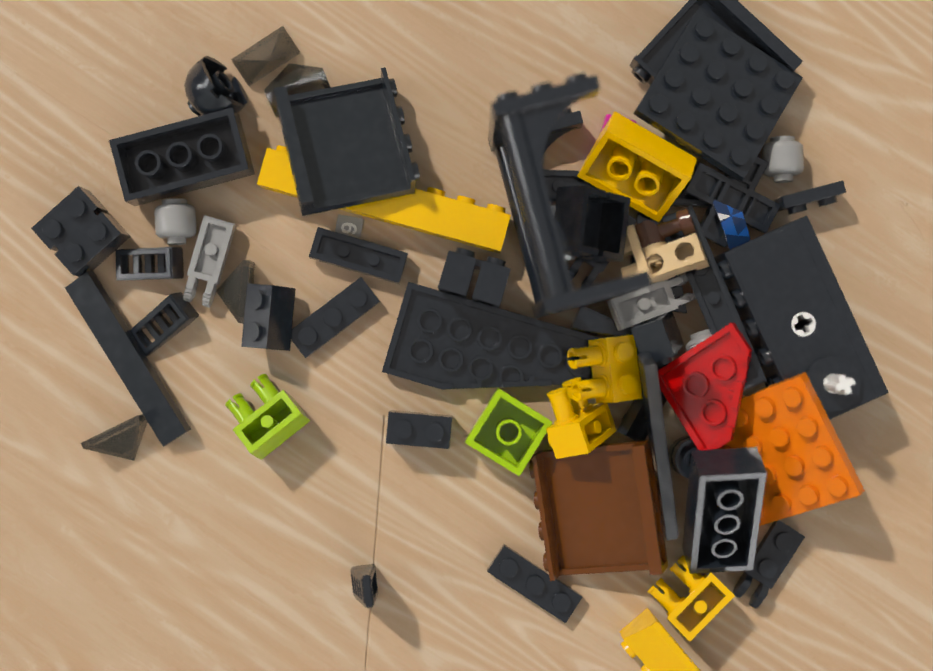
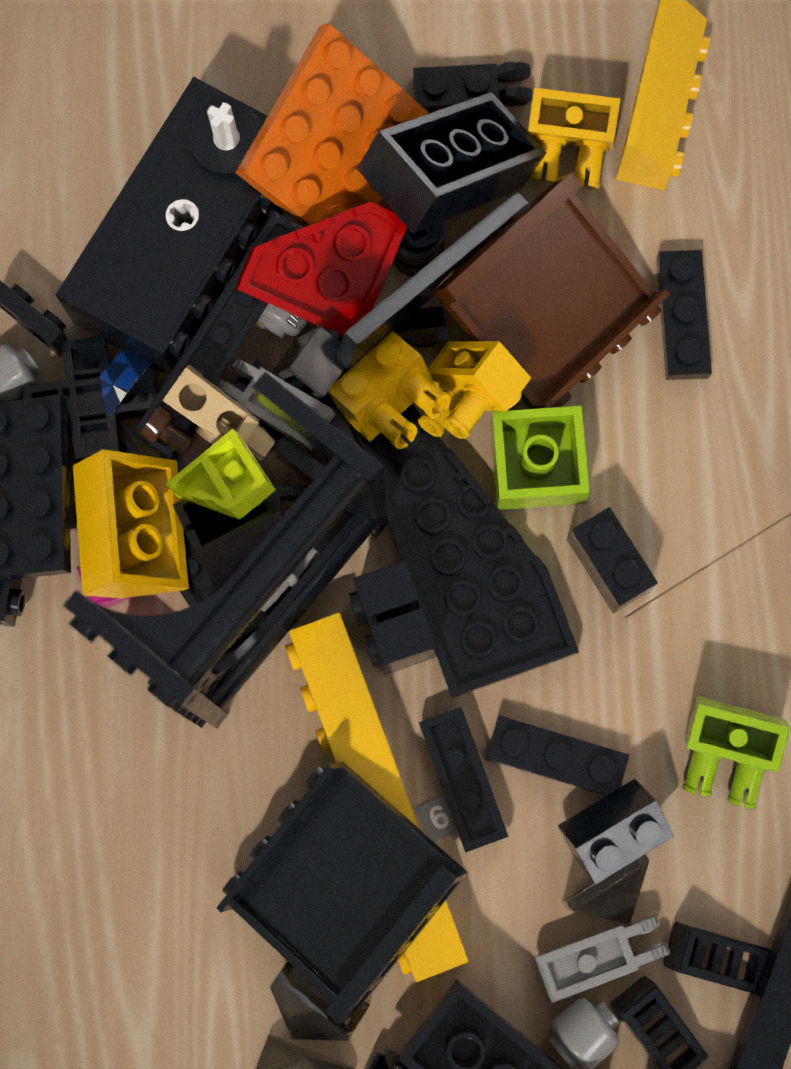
camera: 125 degrees left, 10 degrees down
(621, 236) = (224, 478): none -> neon yellow wing

